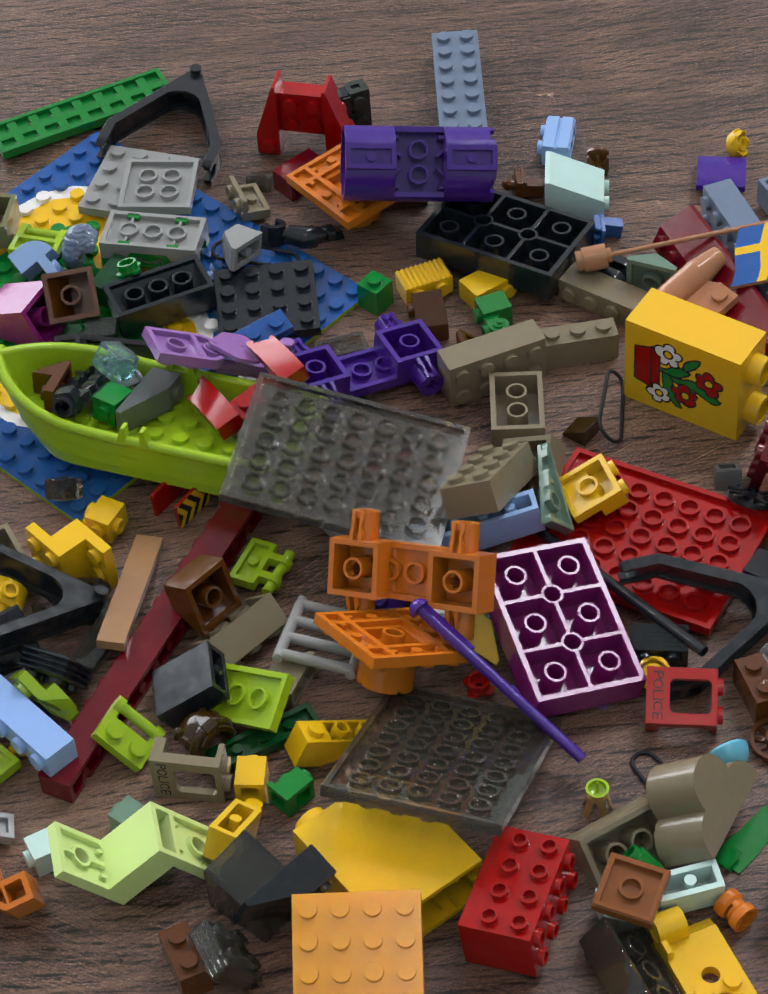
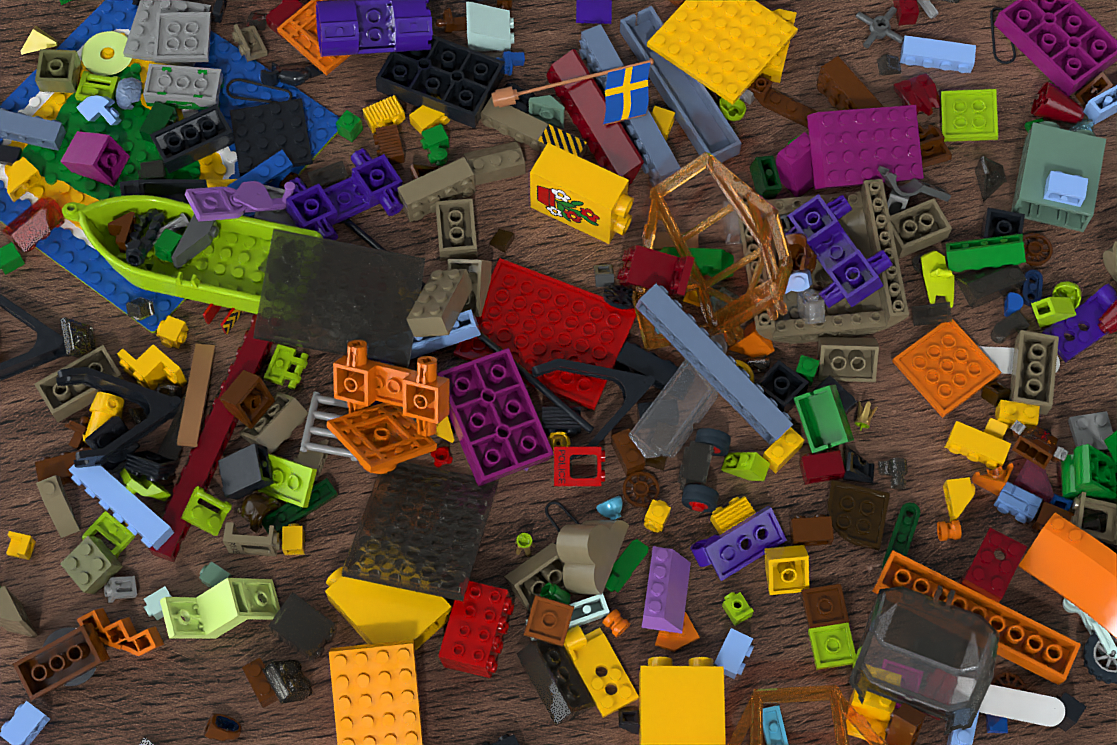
camera: 10 degrees left, 20 degrees up
(36, 214) = (105, 67): none -> yellowish green sticker
(71, 296) = (128, 145): reddish brown slope -> none
(115, 360) = (167, 212): clear light blue brick -> none
(128, 267) = (167, 118): green plate -> none
(227, 416) = (255, 254): red wedge -> none
(230, 824) = (285, 583): yellow brick -> none
(240, 246) = (247, 91): light grey slope -> none
(291, 791) = (321, 548): green brick -> none
(303, 875) = (329, 631): black slope -> none
(320, 741) = (342, 507): yellow slope -> none
(465, 648) = (430, 443): dark purple bar -> none
(552, 498) = (485, 314): sand green wing -> none
(593, 488) = (512, 298): yellow plate -> none
(621, 407) = (529, 220): black piece -> none
(695, 283) = (577, 129): nougat plate -> none

